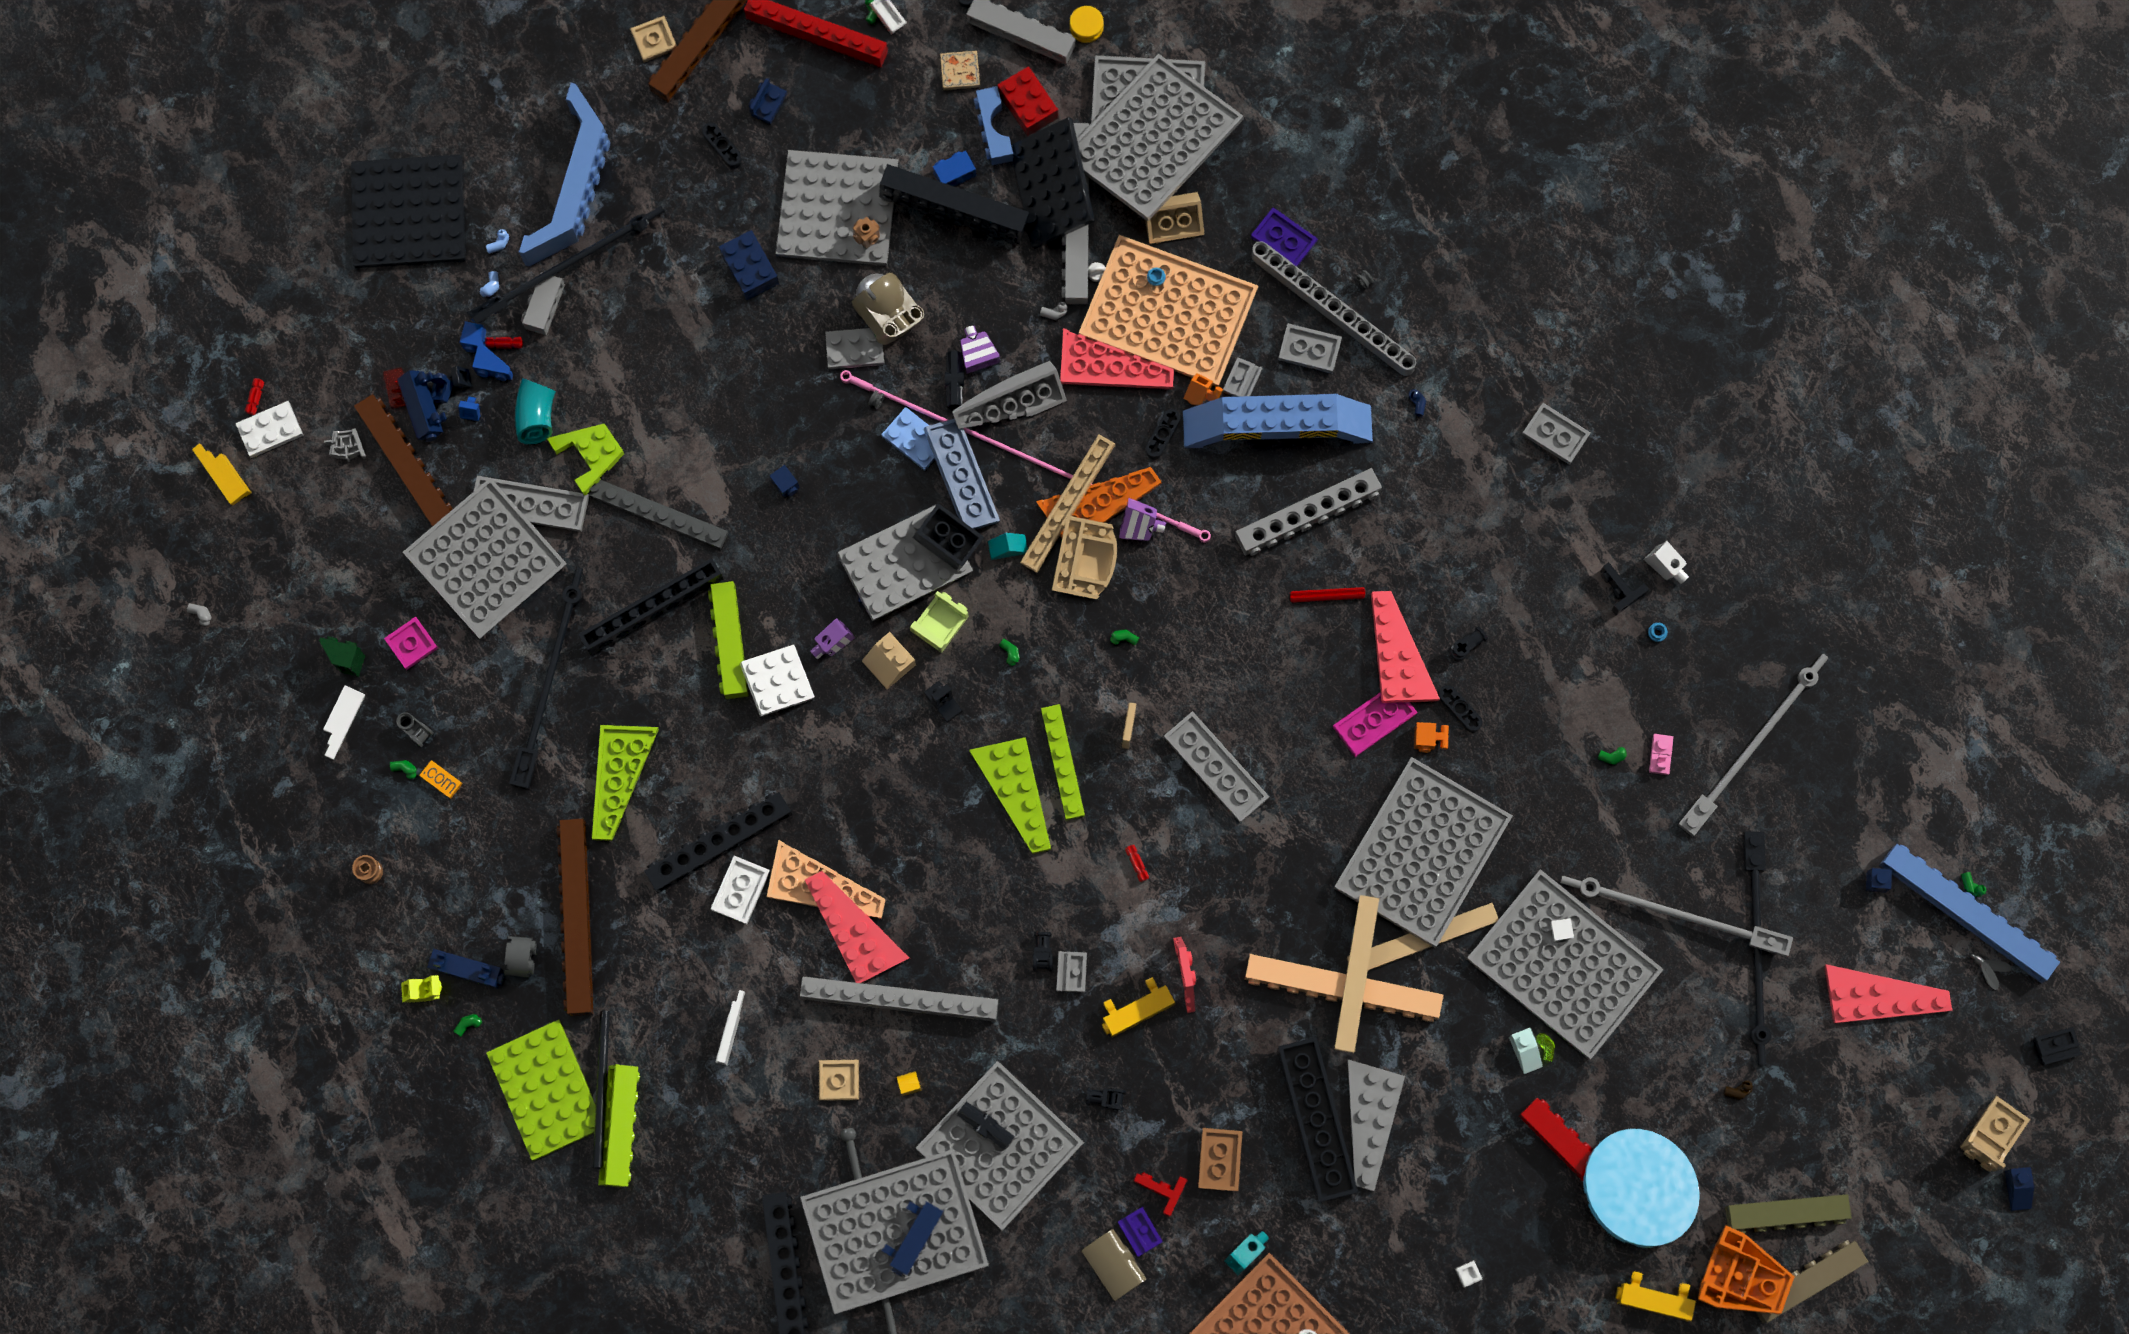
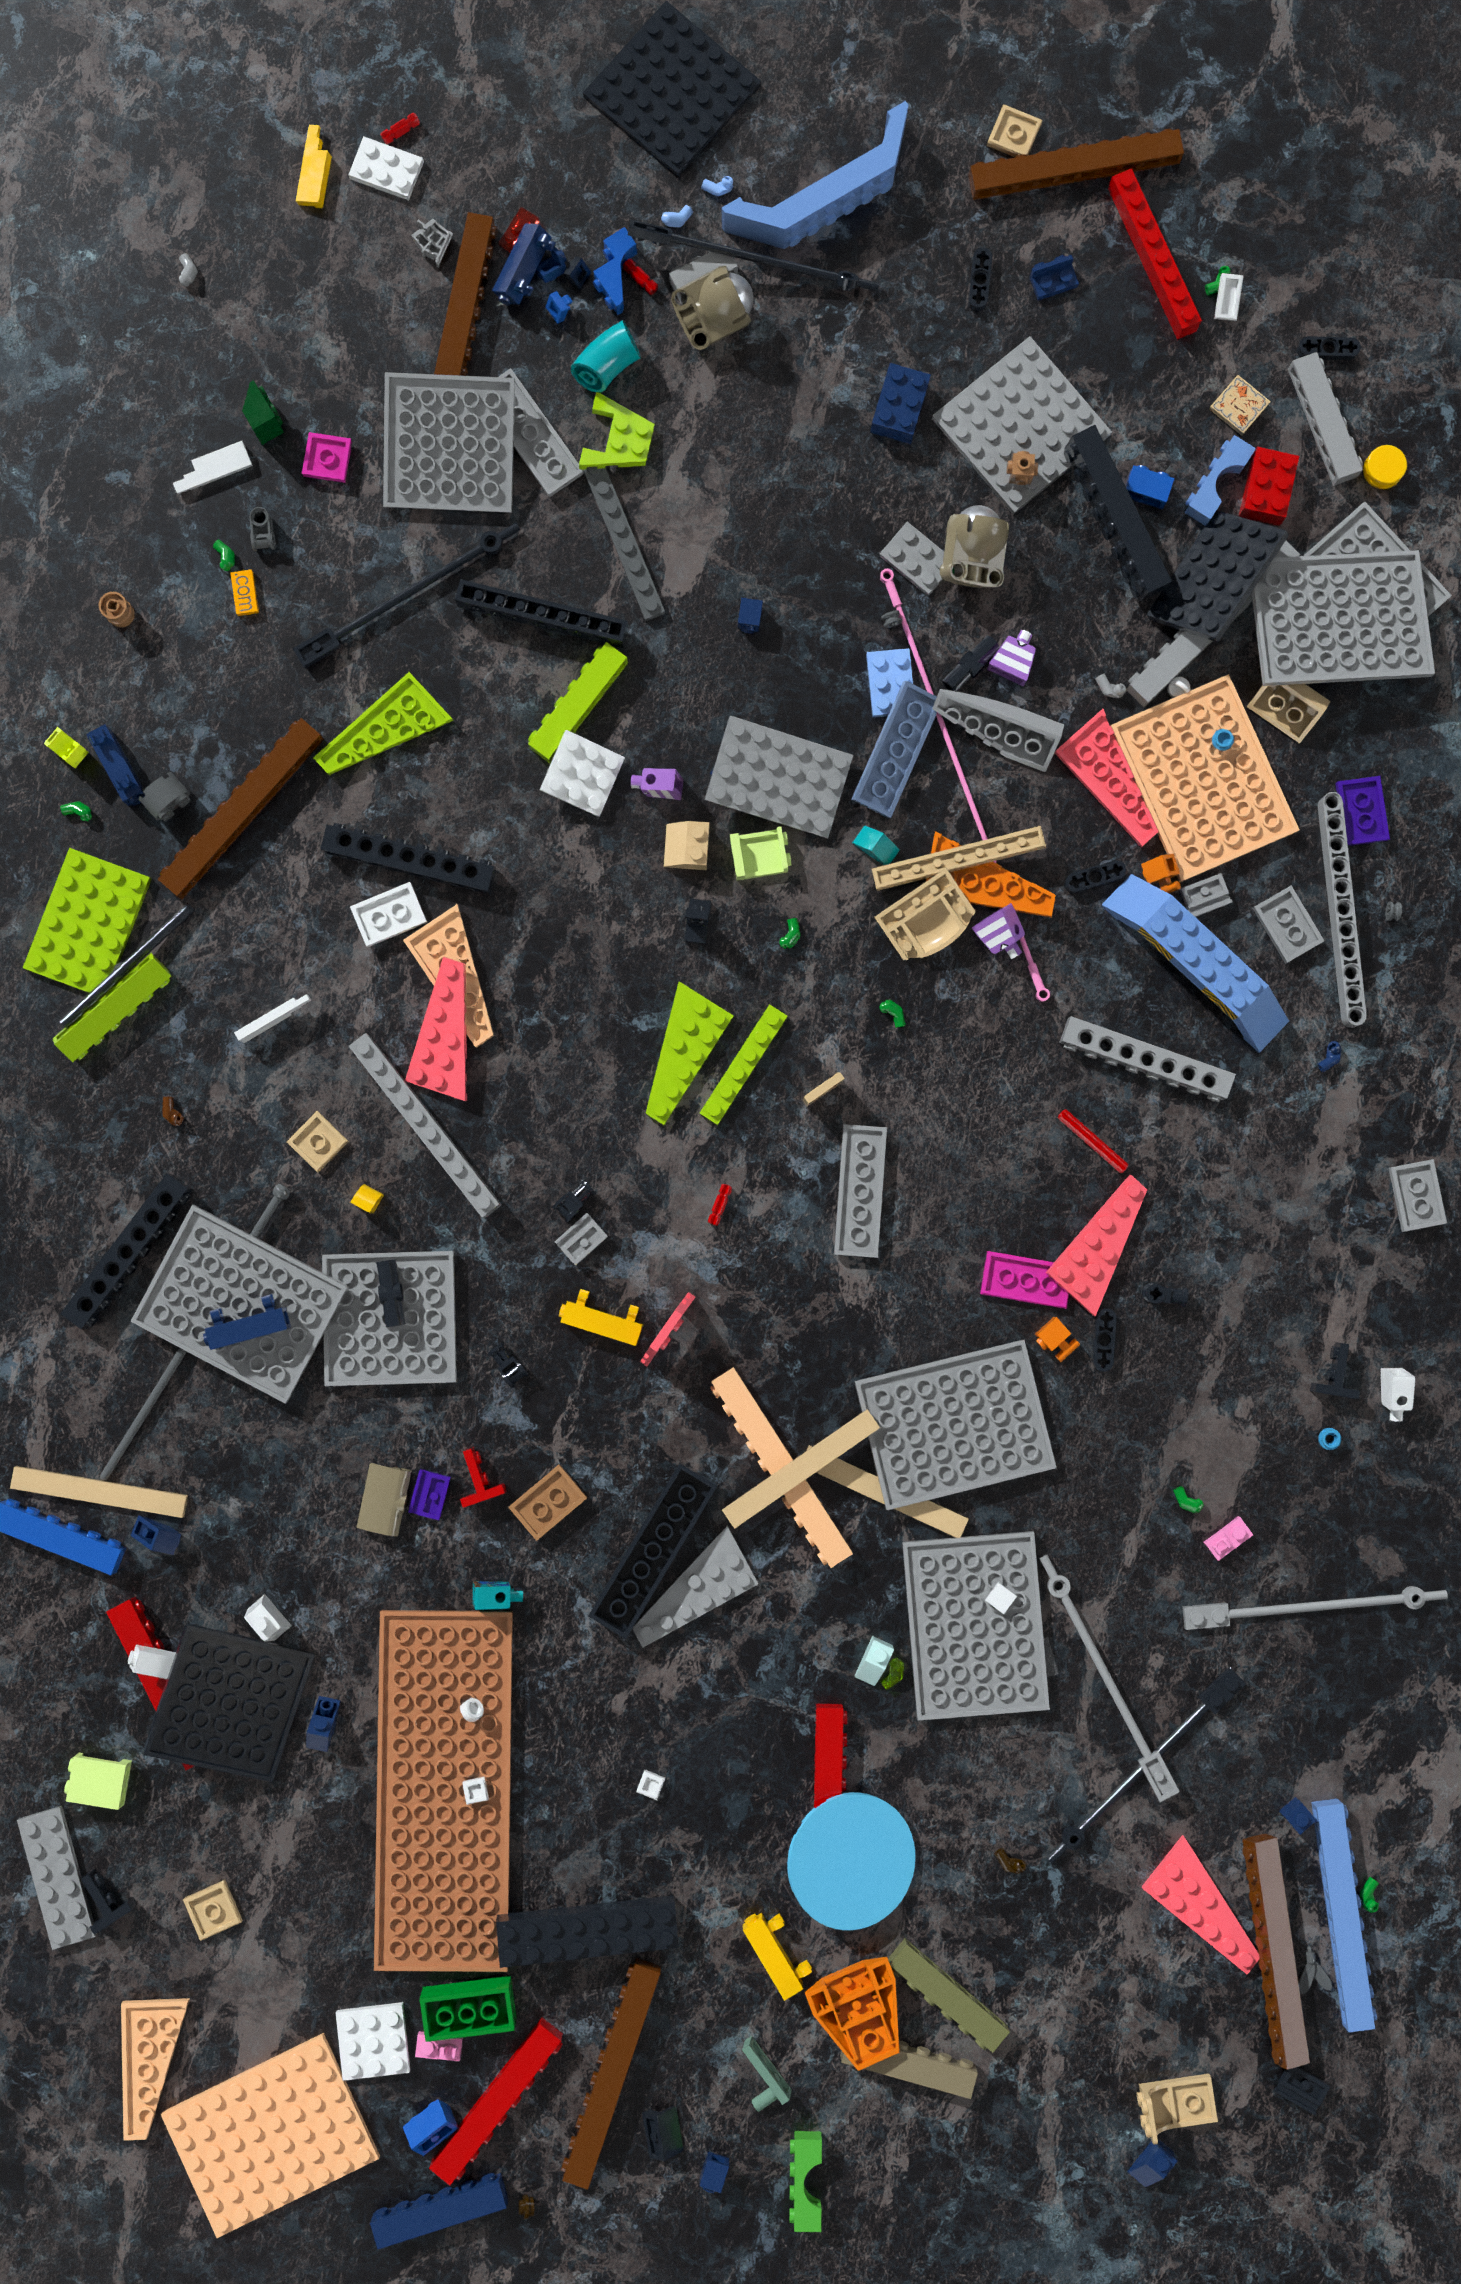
camera: 45 degrees right, 10 degrees up
(572, 315) = (714, 306): none -> dark tan piece
(723, 1158) = (169, 1113): none -> reddish brown arm
(948, 537) = (831, 790): black brick -> none
(1953, 977) = (1275, 1951): none -> brick

